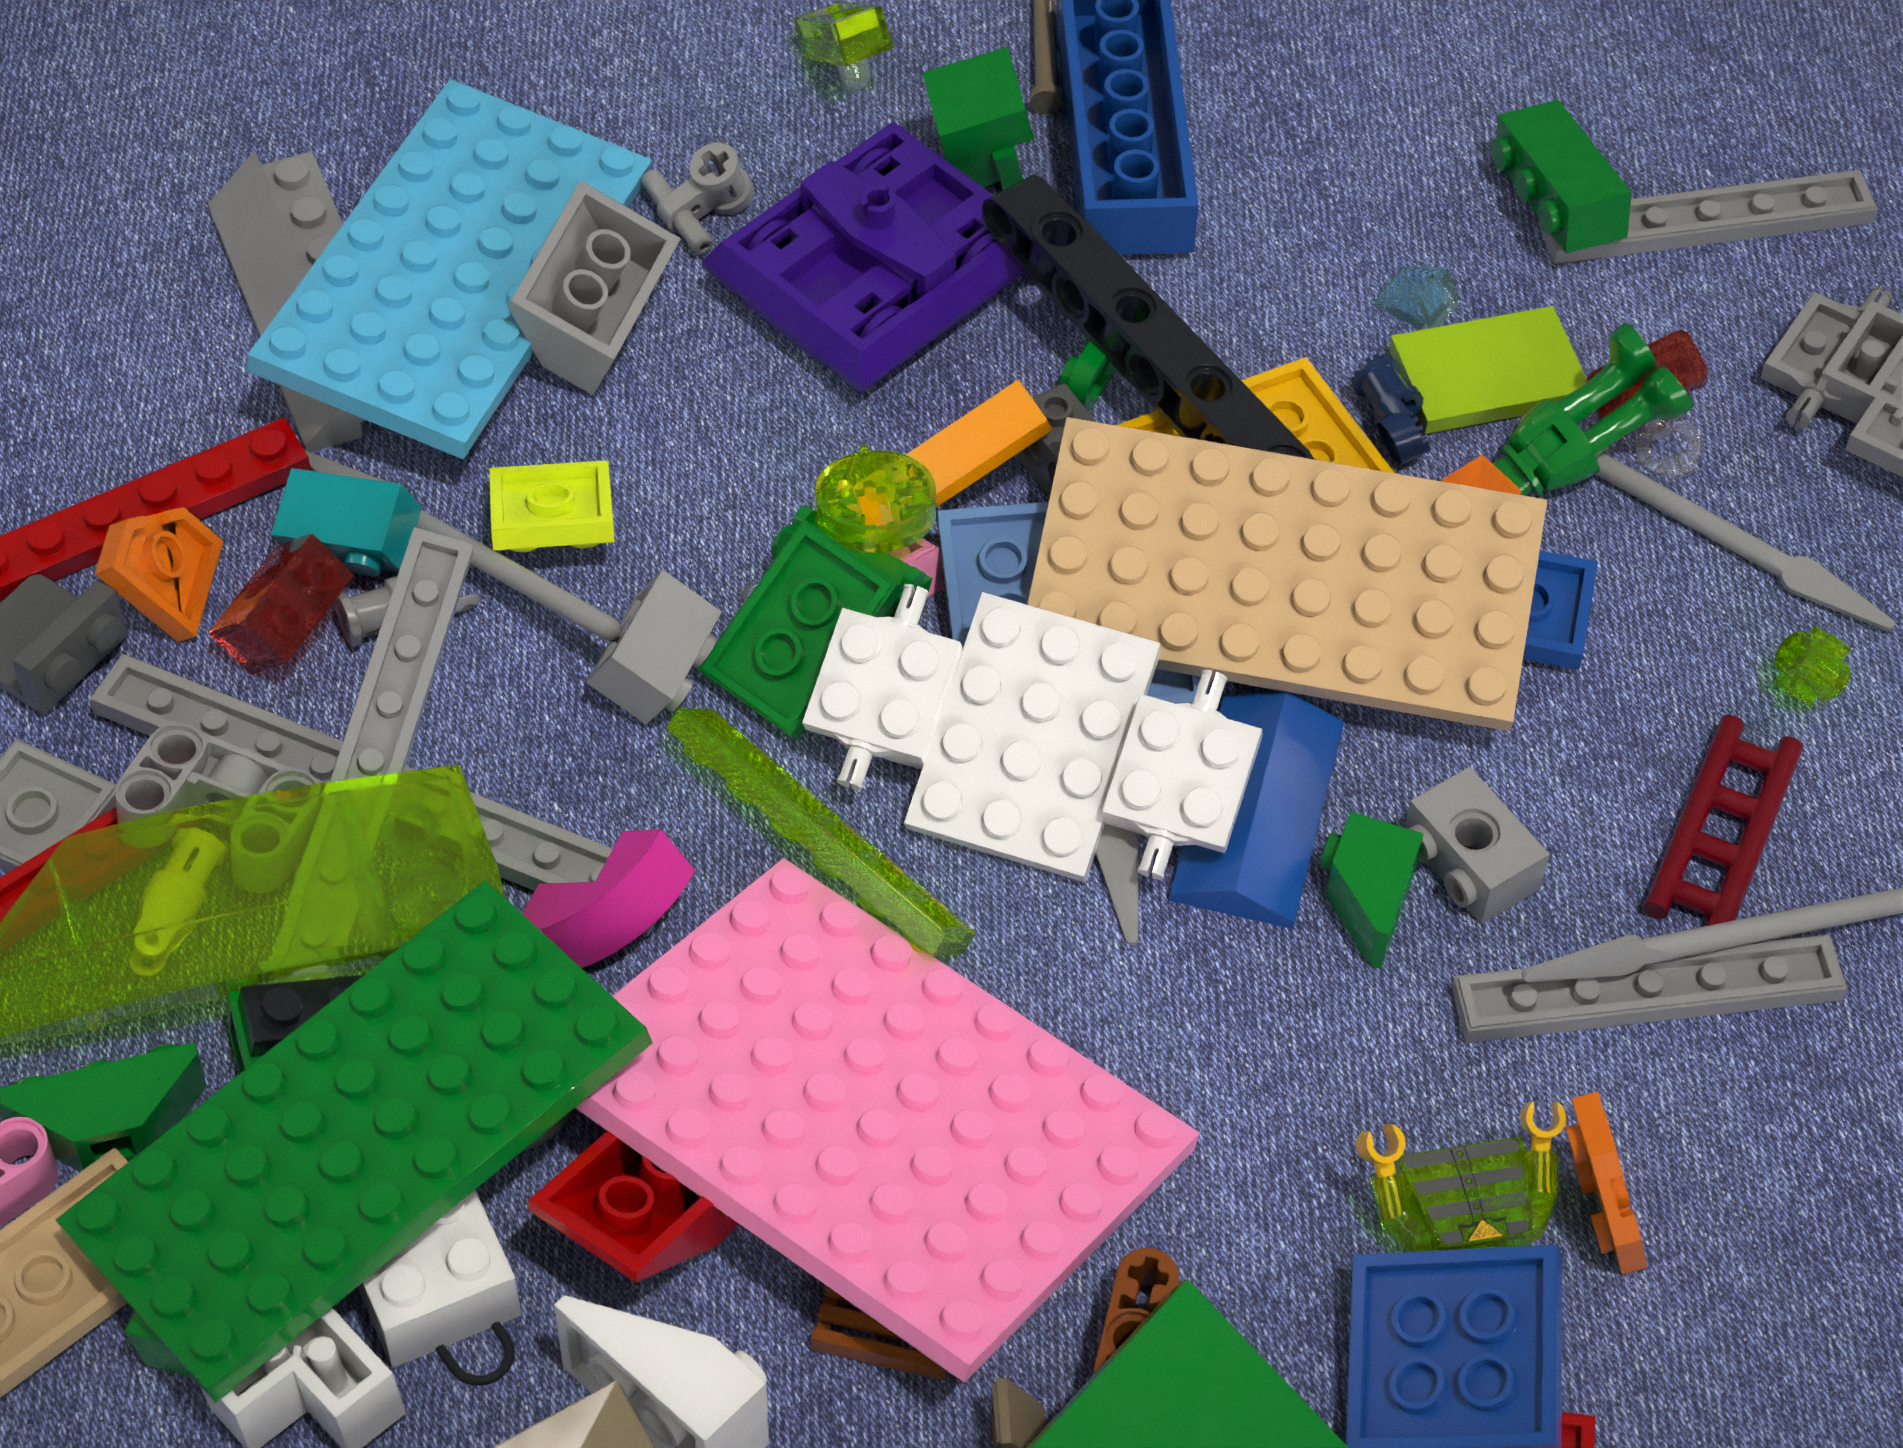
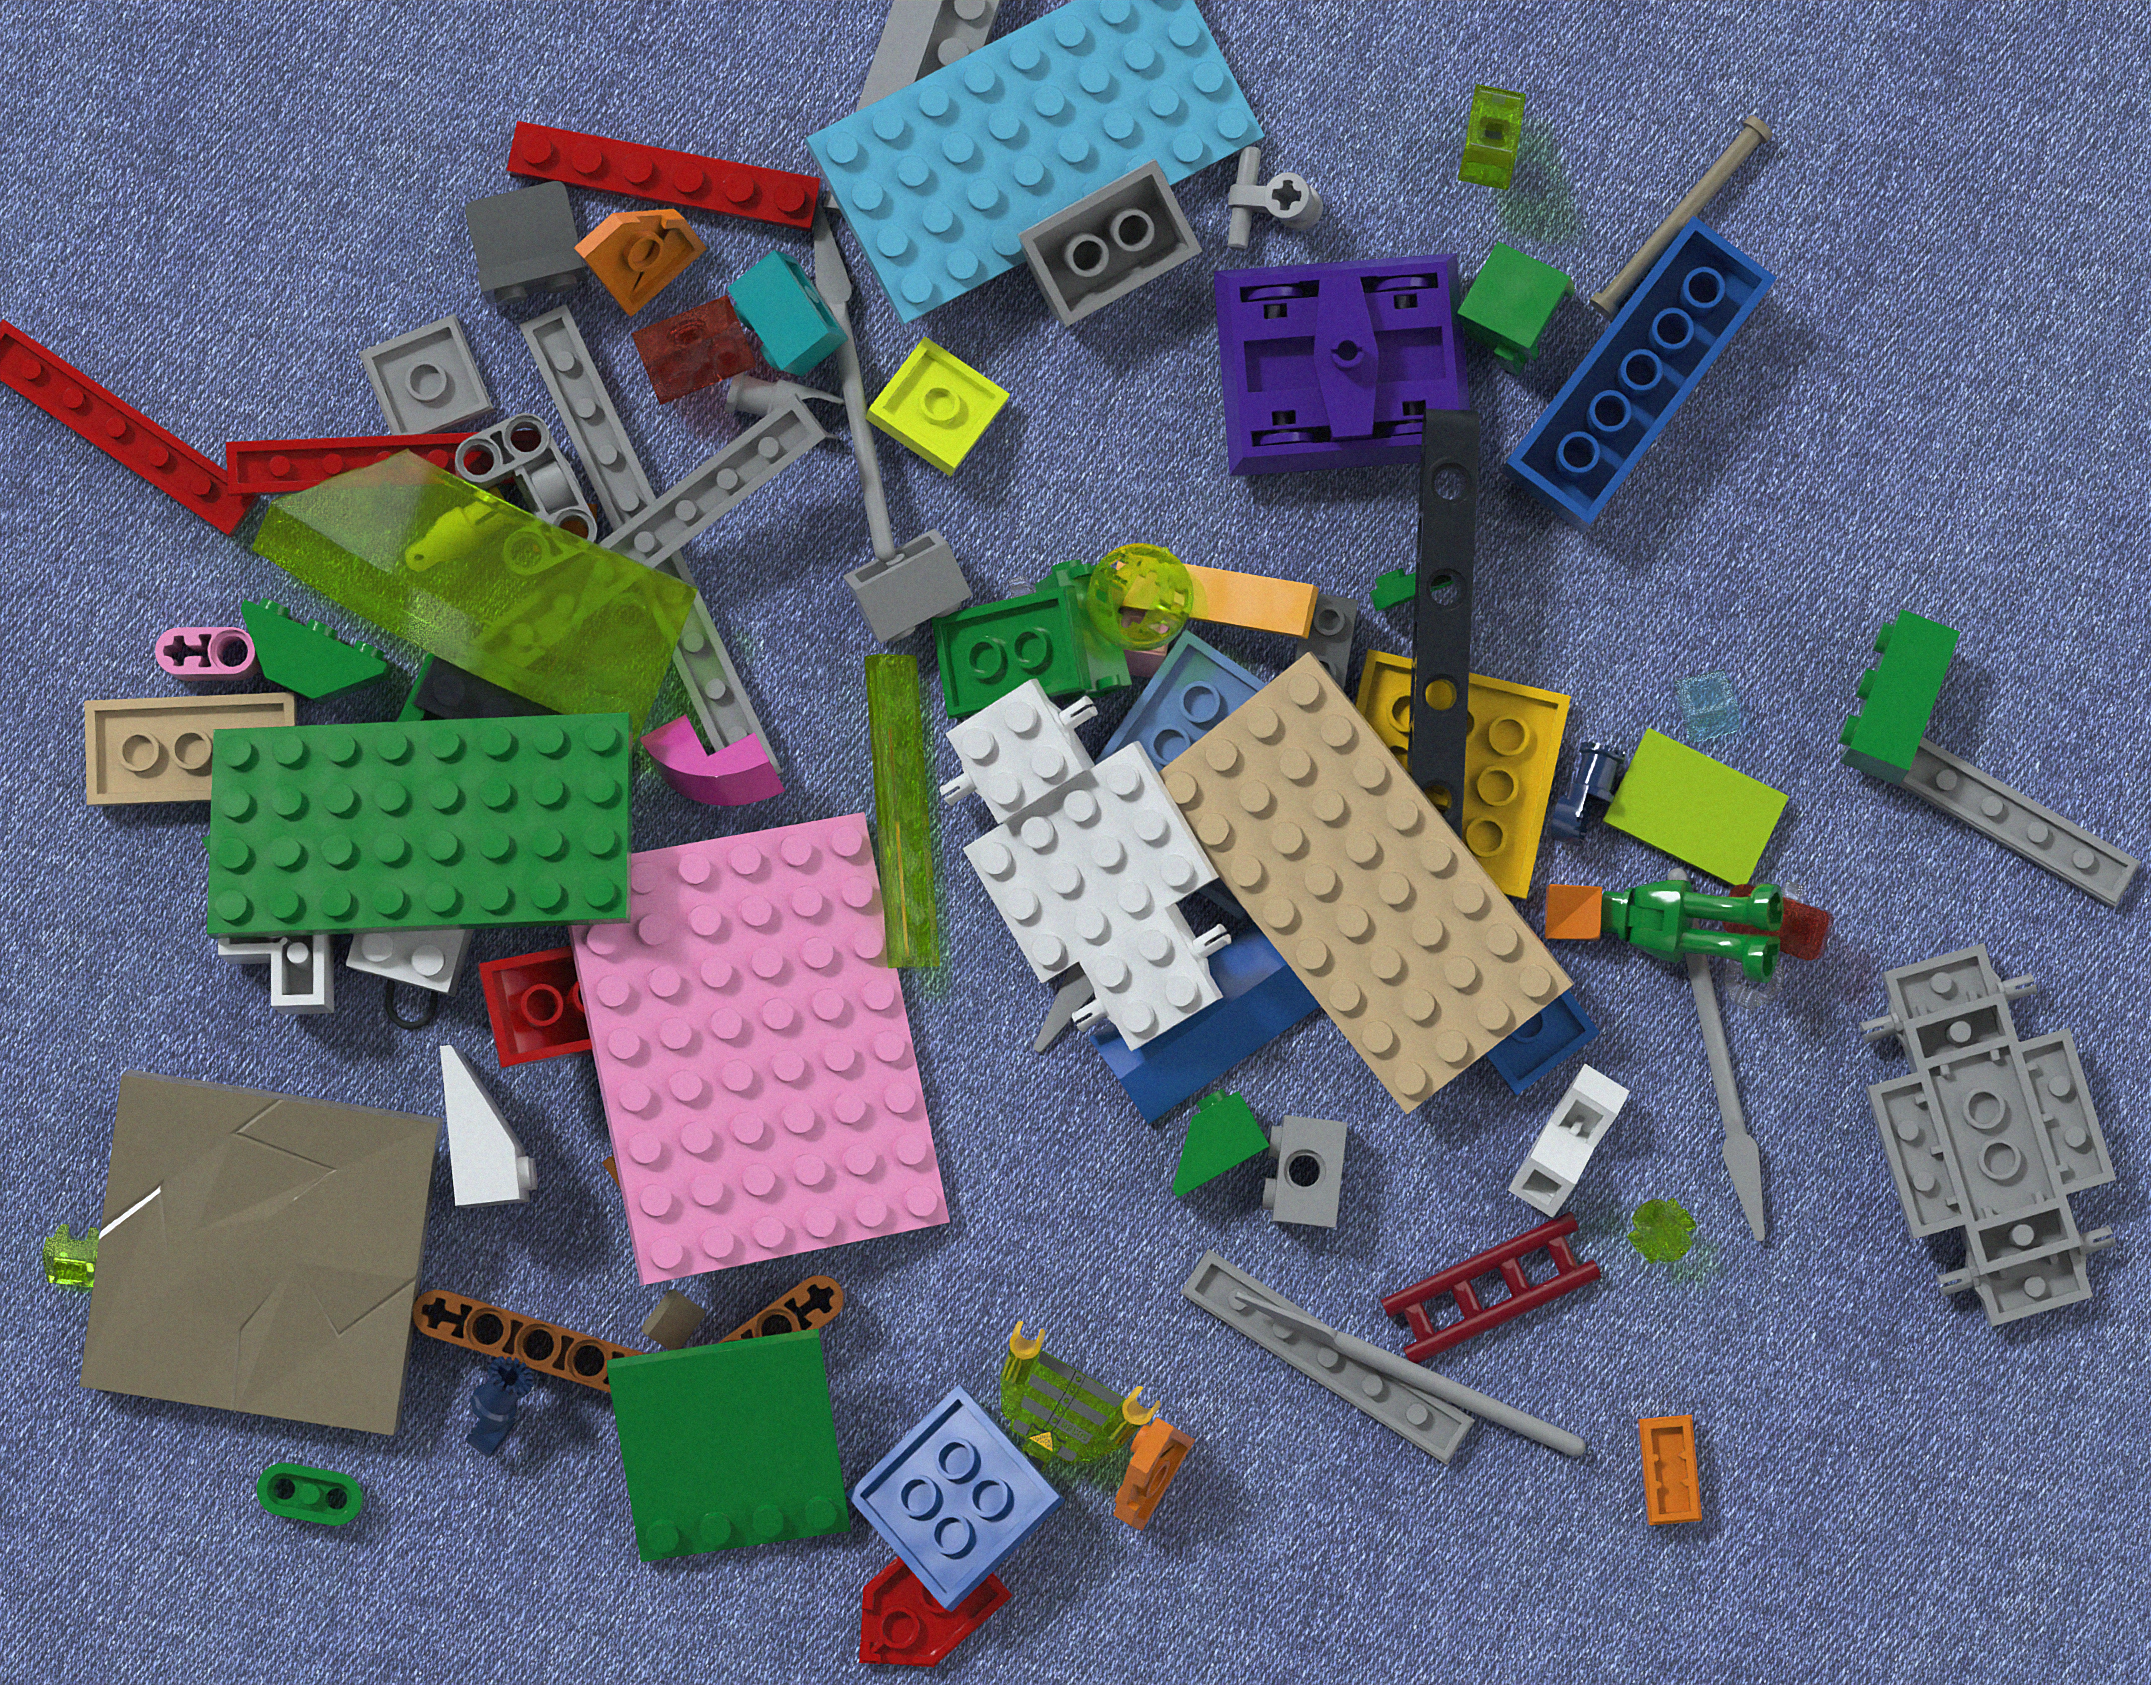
camera: 40 degrees right, 30 degrees up
(1663, 678) = (1568, 1140): none -> white brick

